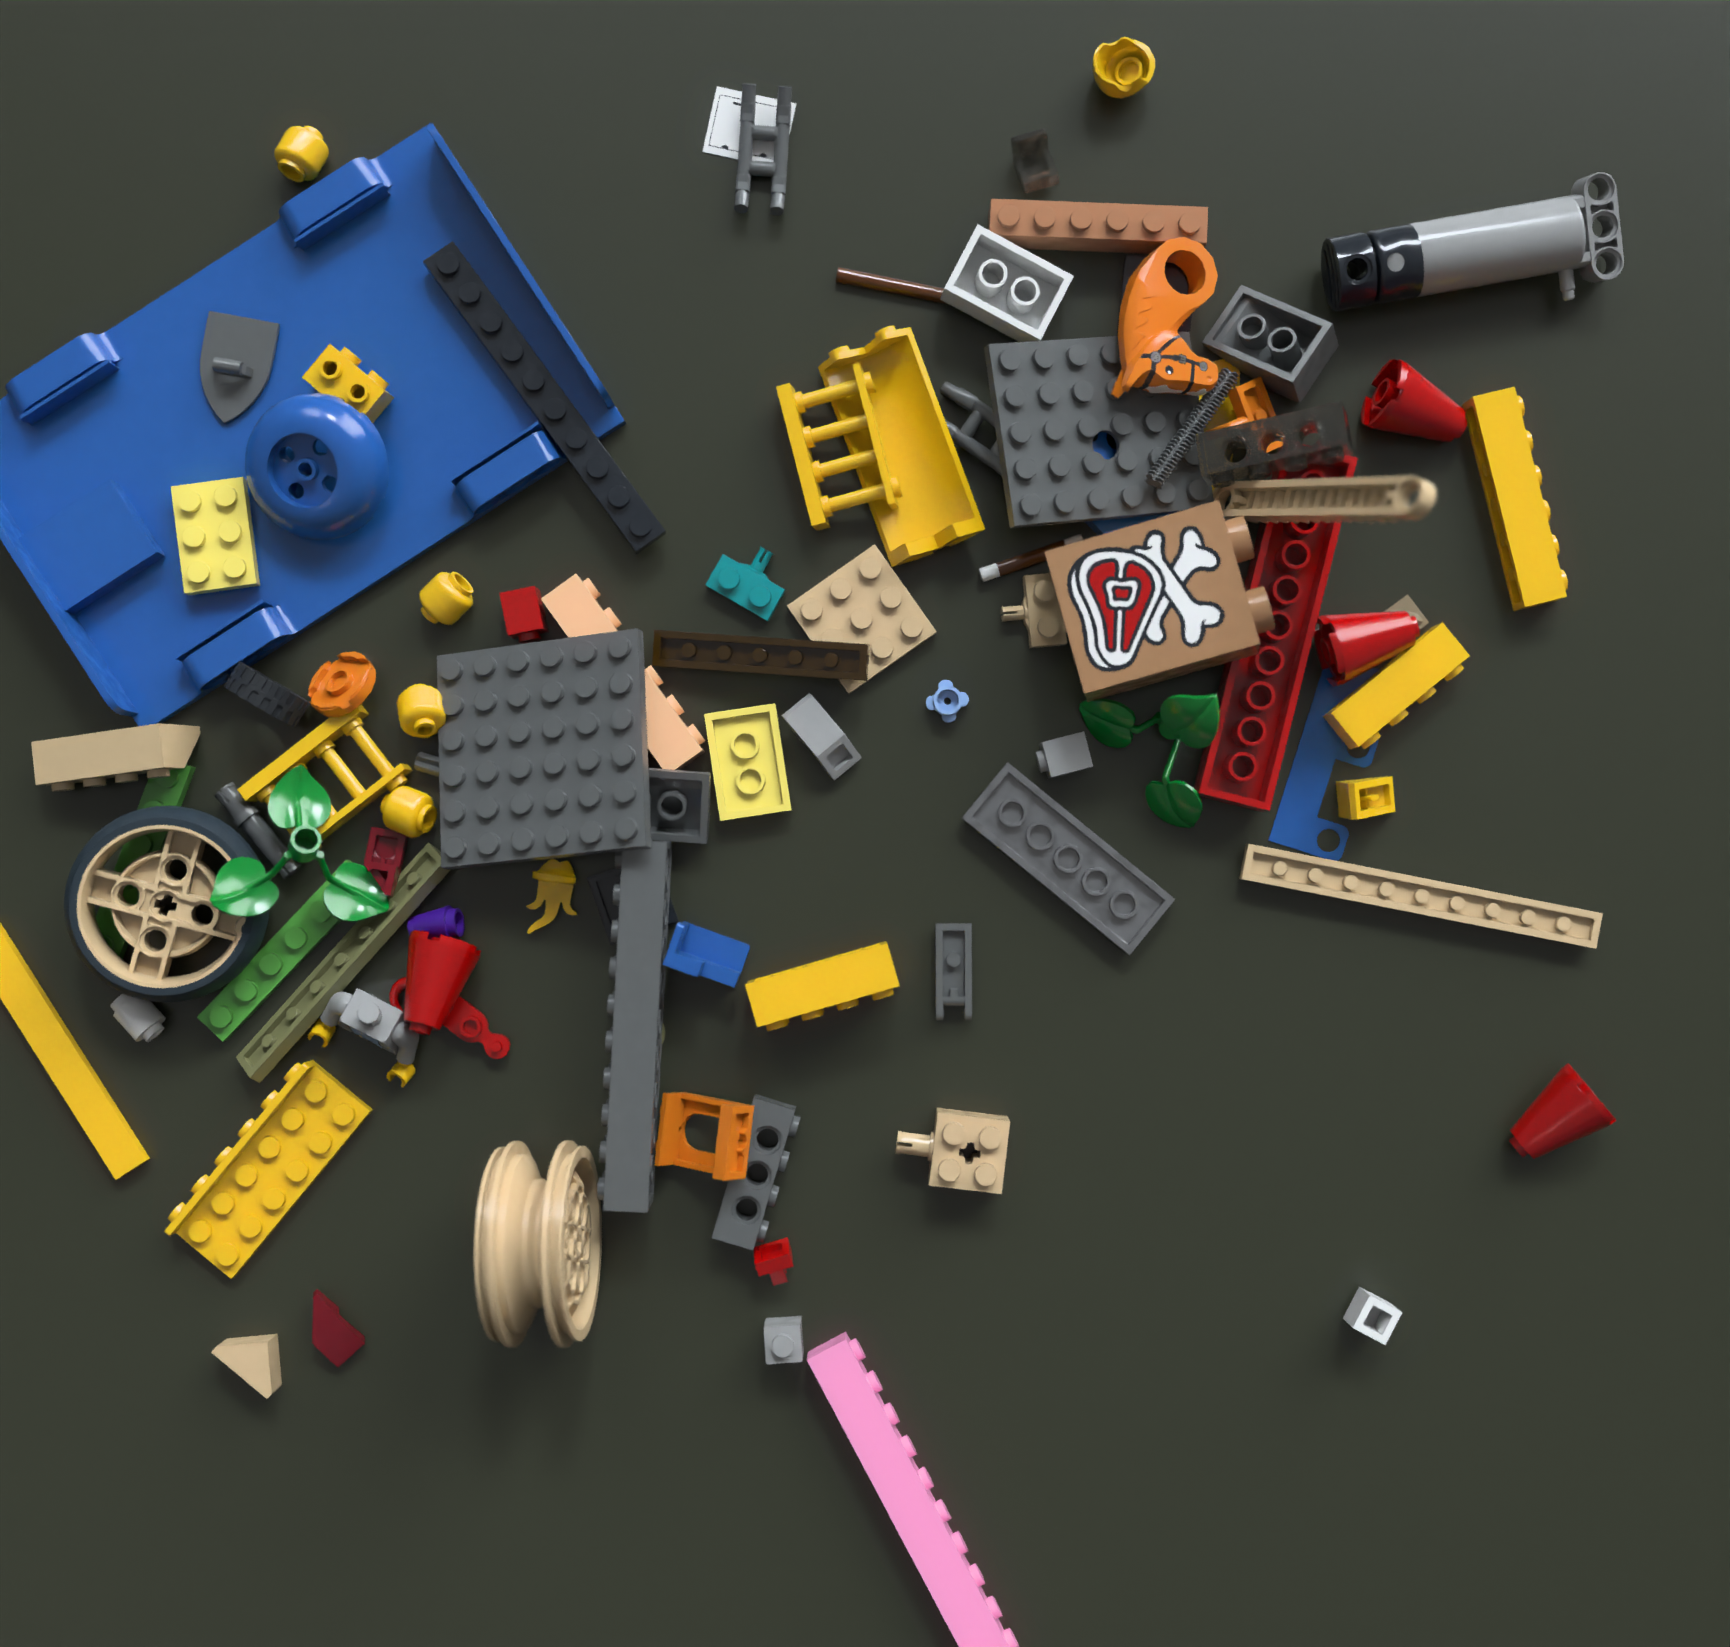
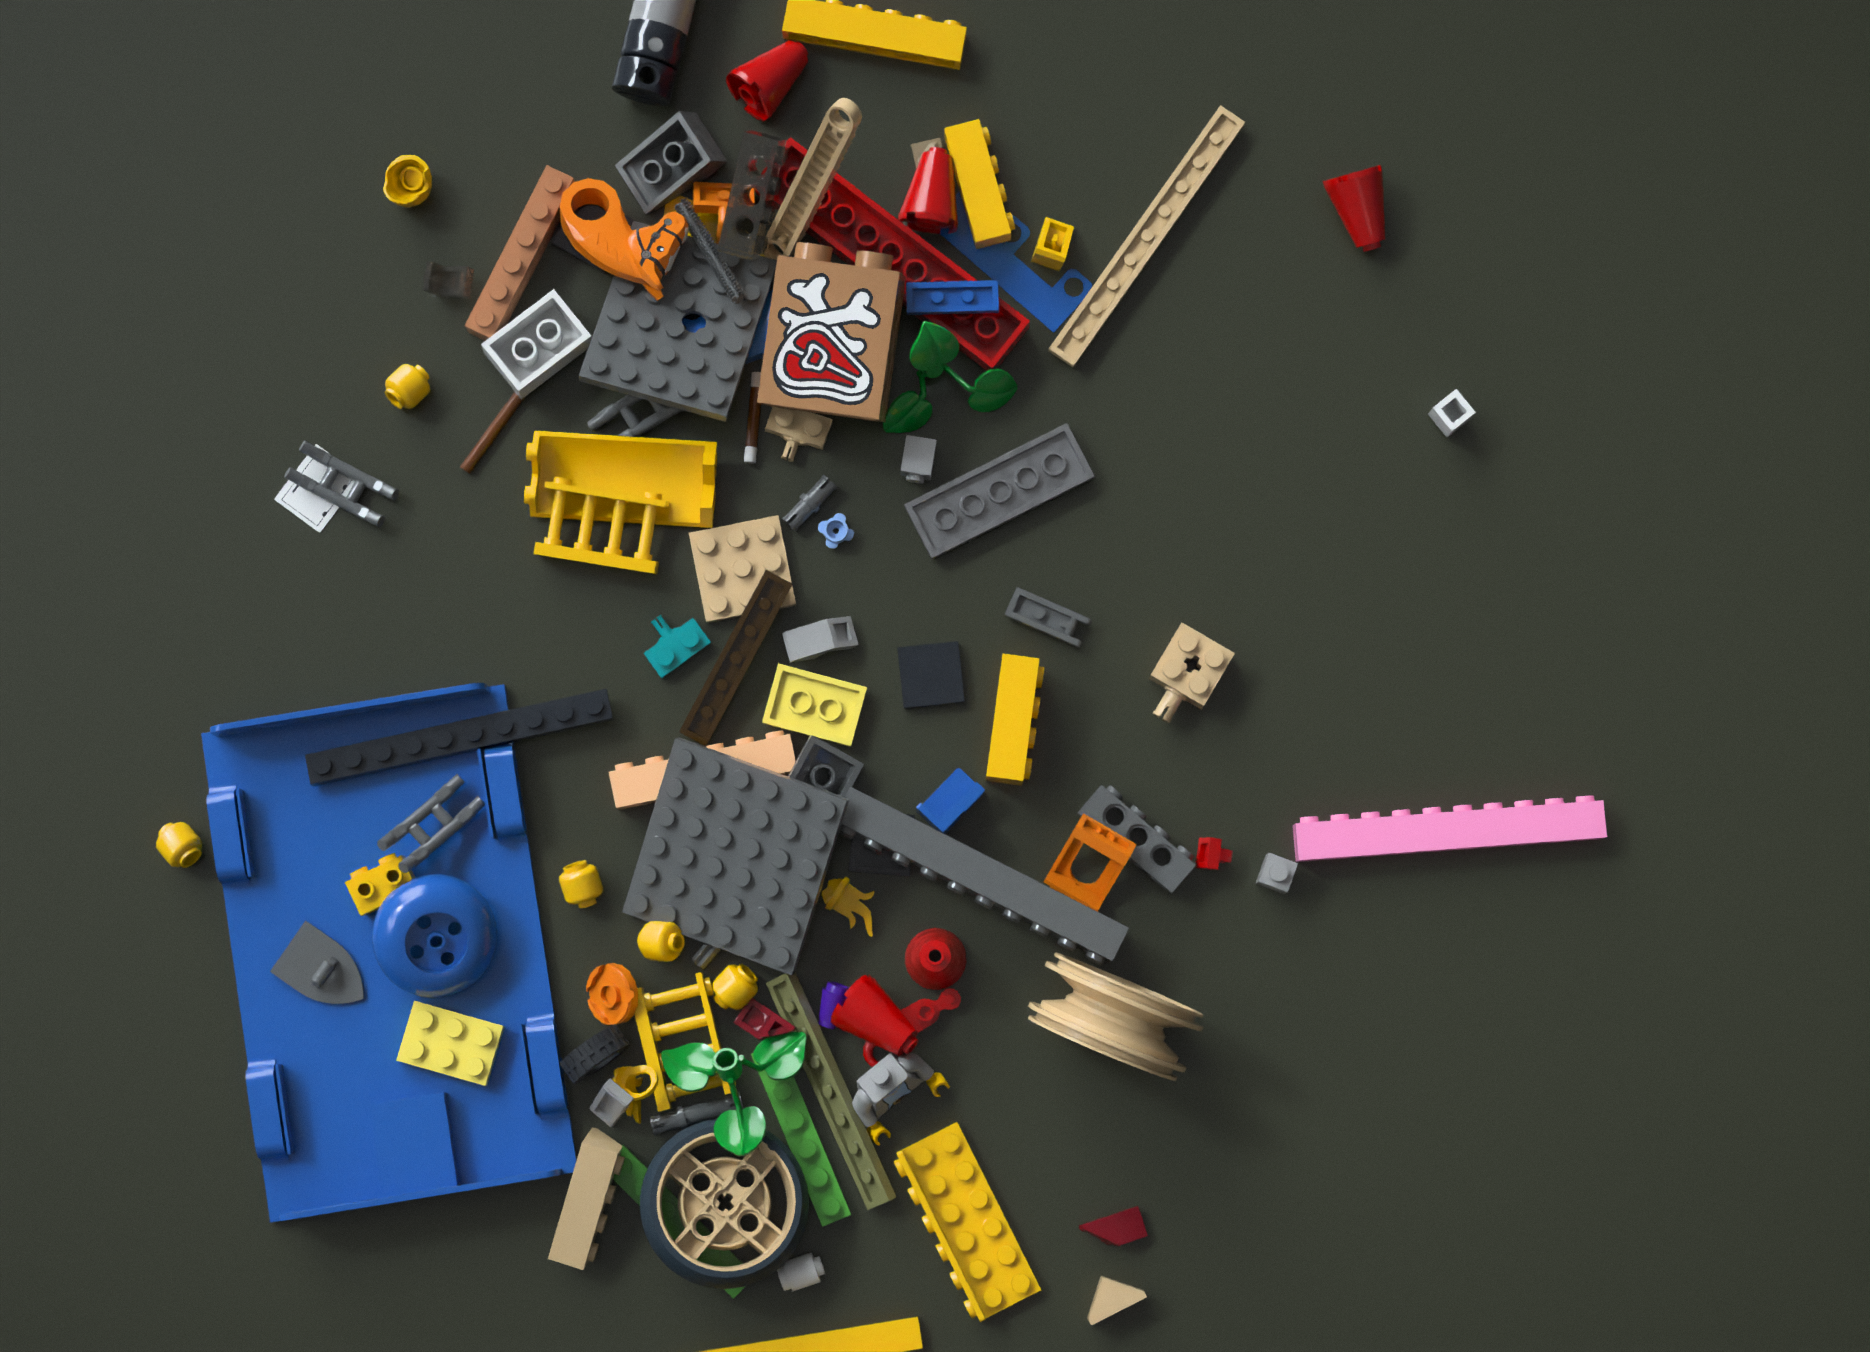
camera: 65 degrees left, 5 degrees down
(223, 735) = (611, 1103): none -> light grey tile
(245, 746) = (626, 1079): none -> yellow piece
(423, 388) = (433, 806): none -> dark grey piece
(524, 614) = (621, 828): red brick -> none
(546, 1010) = (935, 974): none -> red cone
(836, 872) = (931, 675): none -> black tile
(899, 170) = (407, 386): none -> yellow head
(964, 659) = (809, 503): none -> dark grey pin
(1257, 714) = (952, 297): none -> blue plate

